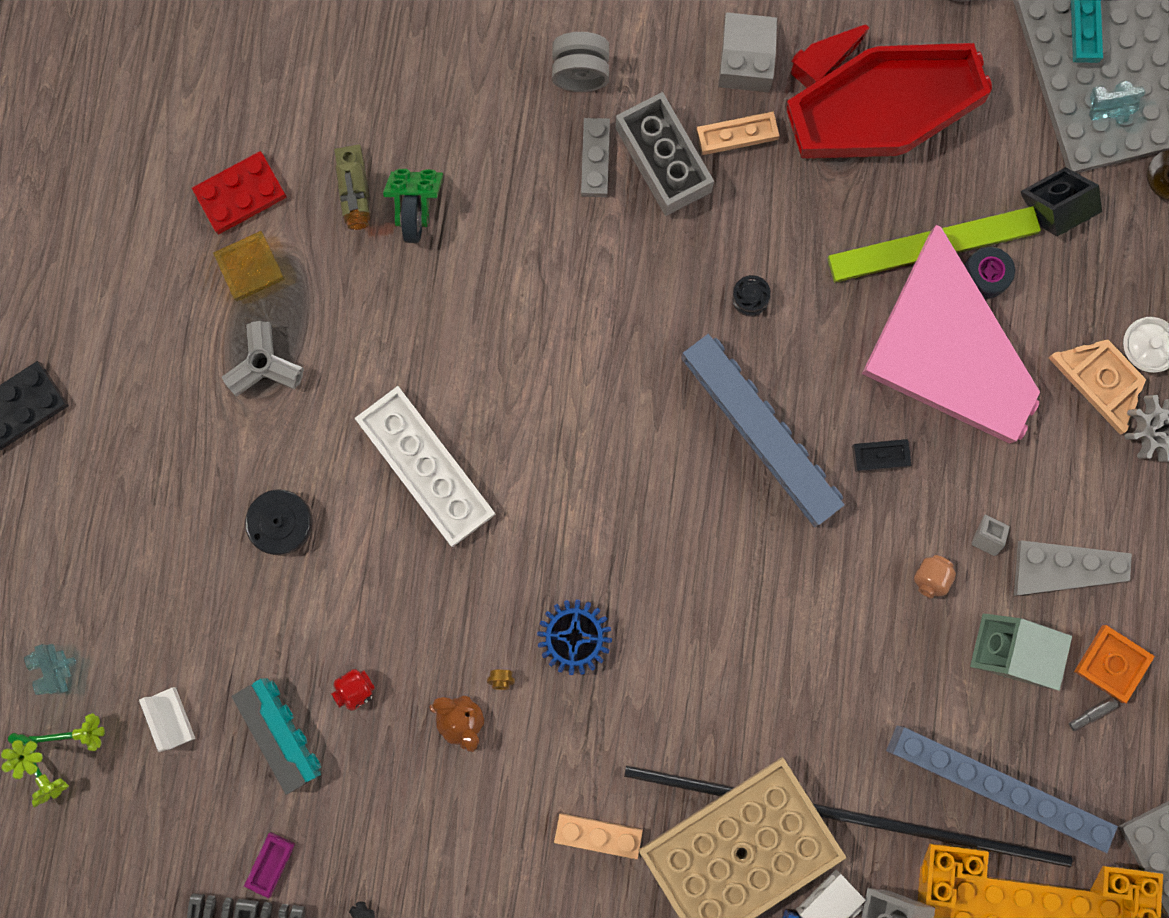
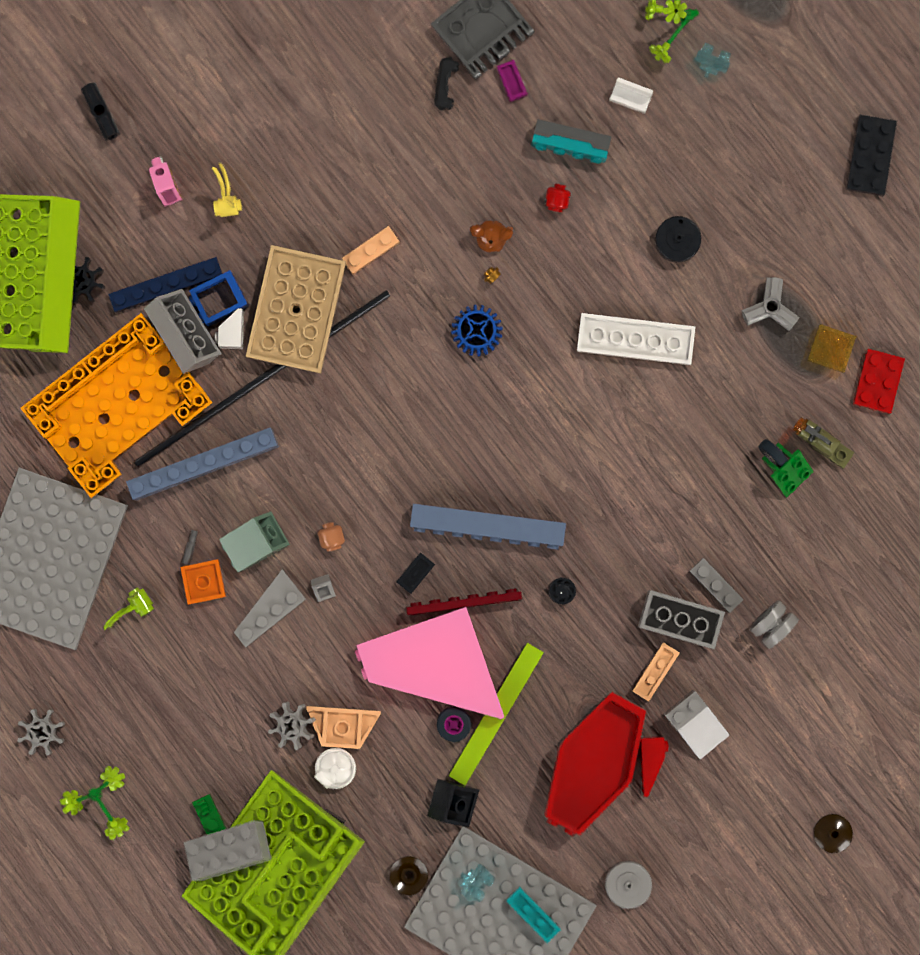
camera: 135 degrees right, 5 degrees up
(870, 385) = (472, 601): none -> dark red plate

